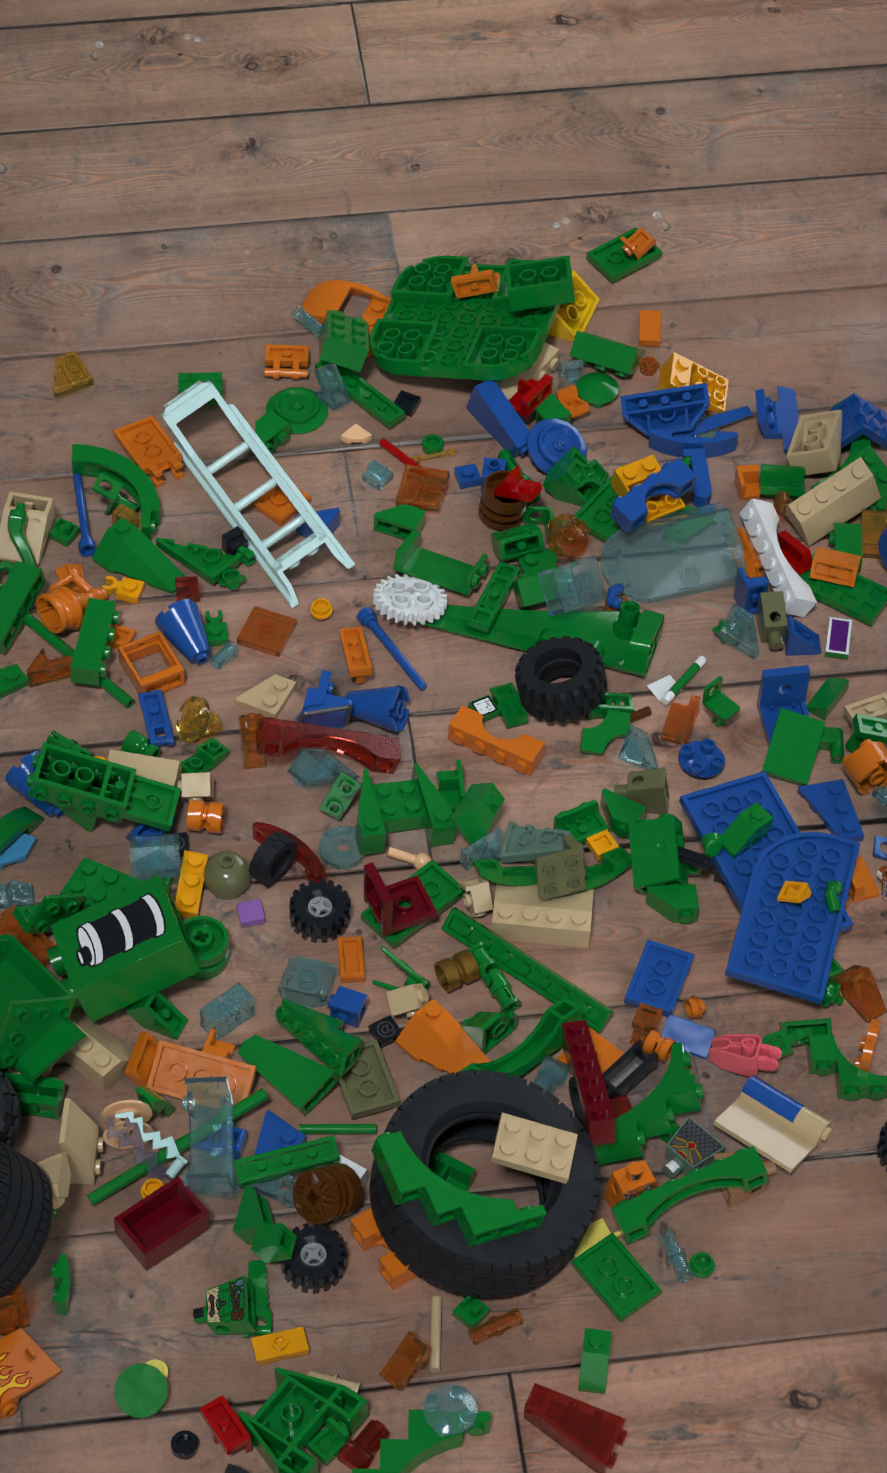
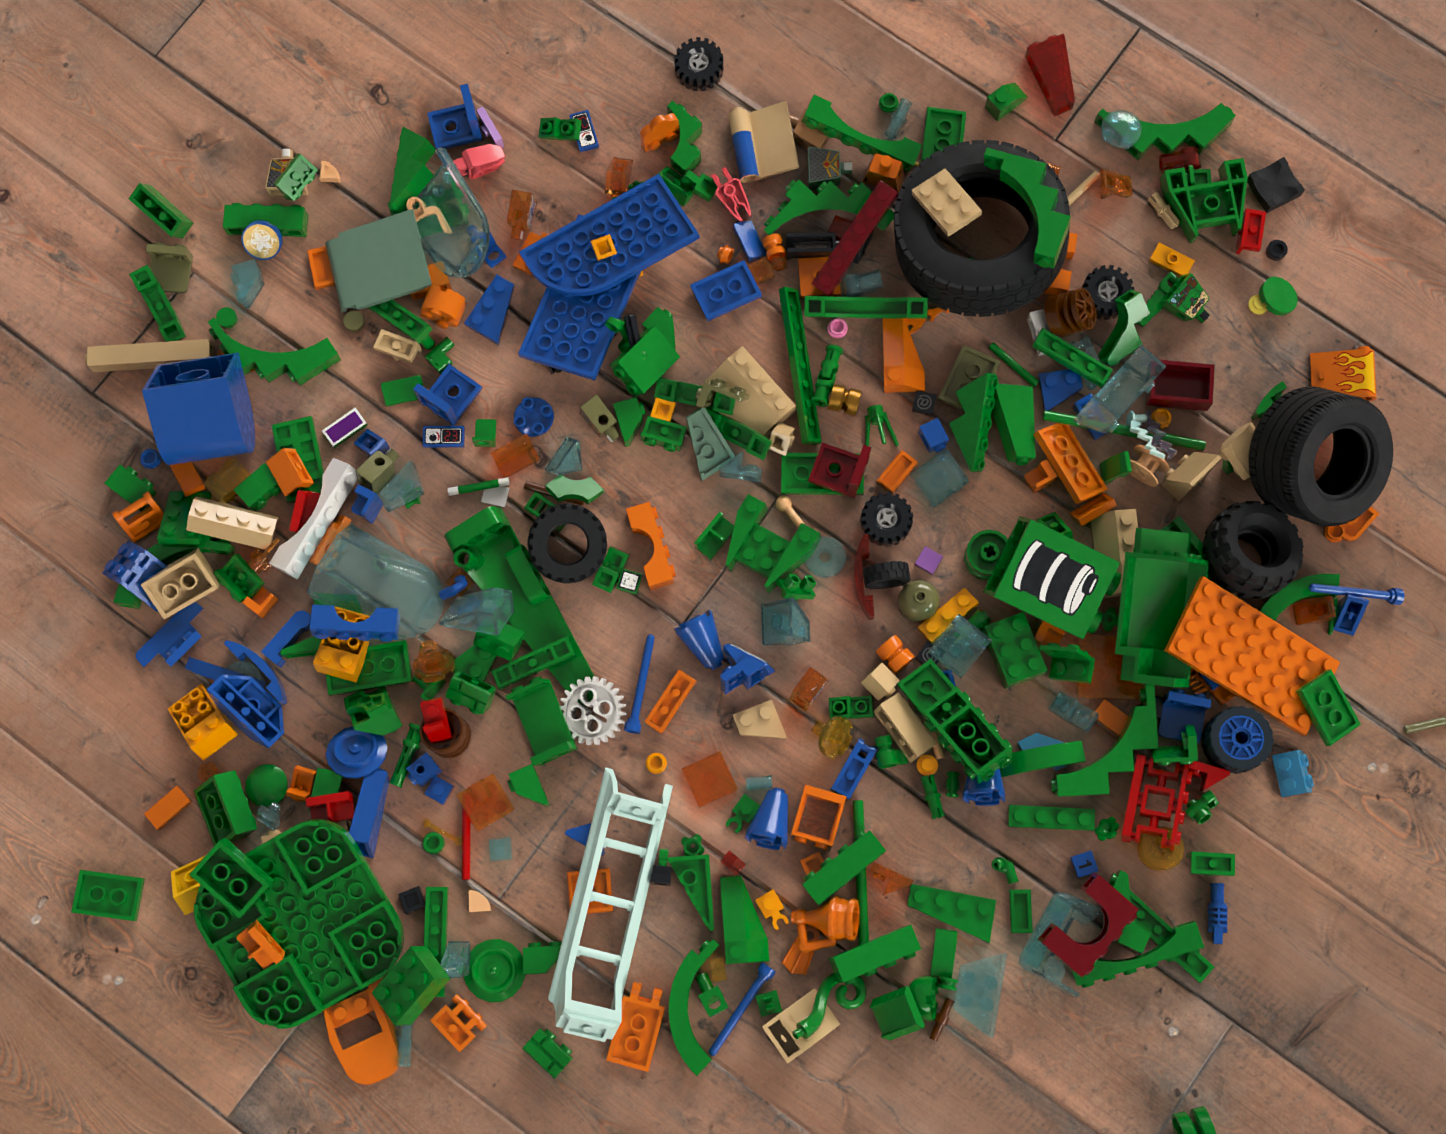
camera: 130 degrees left, 25 degrees up
(228, 1011) = (1012, 495): clear light blue brick -> none
(374, 751) = (802, 651): clear red arch -> none
(407, 999) = (896, 402): tan brick -> none
(478, 811) = (723, 490): green slope -> none
(490, 1028) = (865, 343): green slope -> none
(525, 1027) = (837, 328): none -> bright pink plate
(638, 243) = (93, 886): orange bracket -> none
(746, 829) = (582, 315): green slope -> none
(747, 695) = (443, 436): none -> tile
(793, 747) = (471, 368): green tile -> none
(831, 891) = (582, 225): green arm -> none

